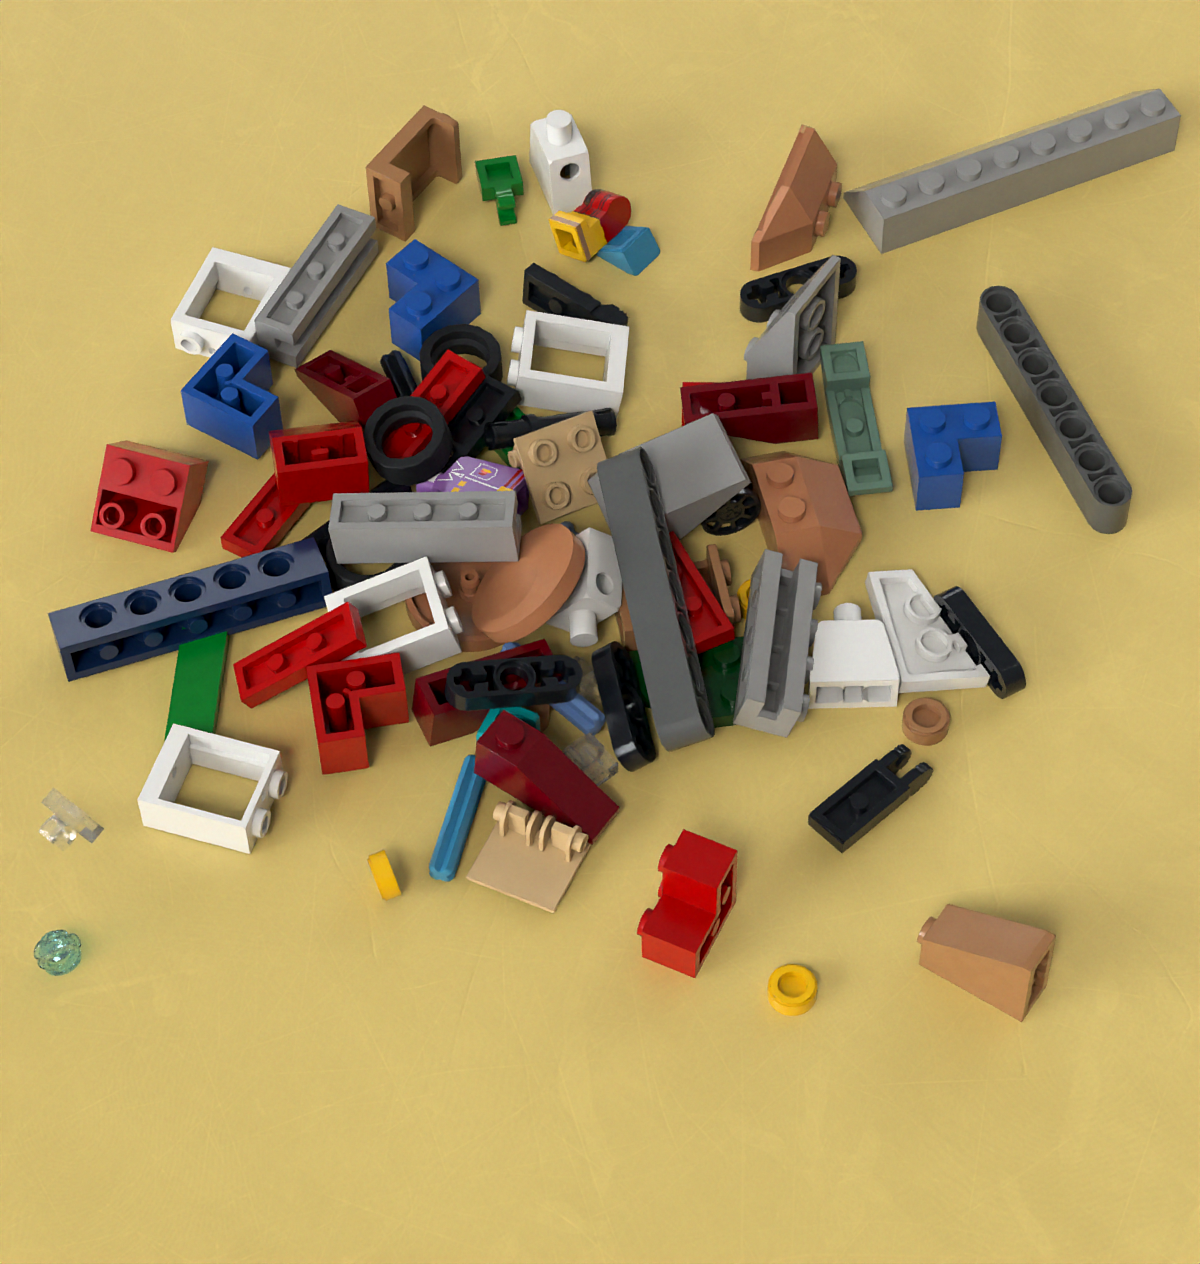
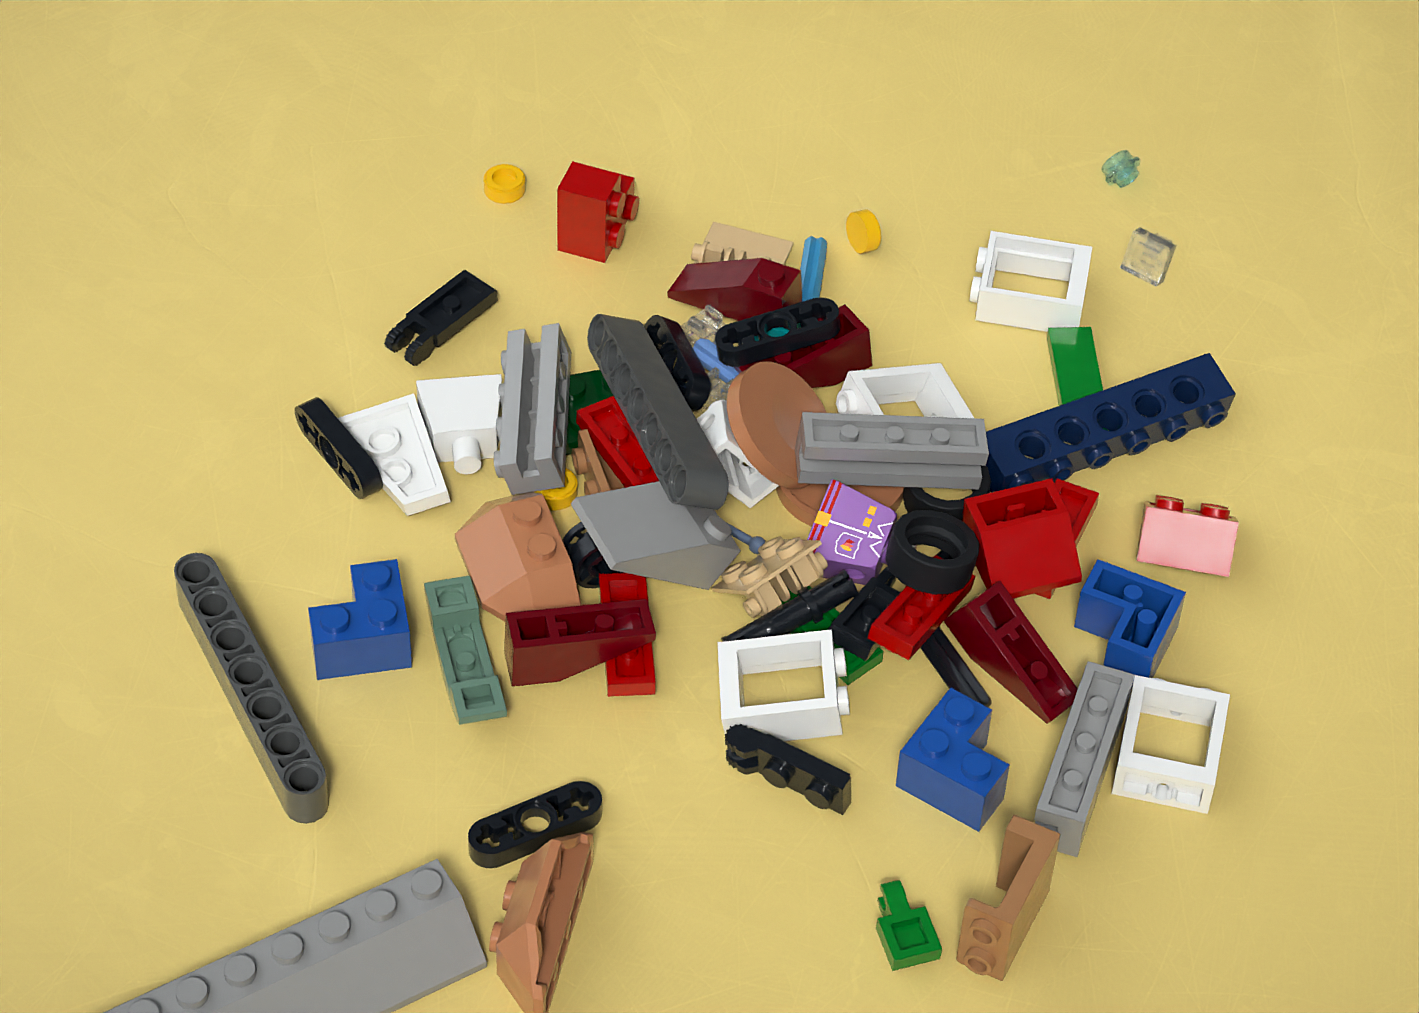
camera: 170 degrees right, 5 degrees down
(285, 660) = (985, 372): red plate -> none
(354, 698) = (927, 333): red brick -> none
(462, 340) = (892, 670): black tyre -> none
(557, 144) = (828, 934): white torso -> none
(590, 224) = (788, 871): leg -> none
(631, 250) = (740, 868): dark azure slope -> none
(798, 329) = (534, 711): light grey slope -> none
(925, 721) = (388, 386): medium nougat tile -> none
(988, 957) = (337, 183): medium nougat slope -> none

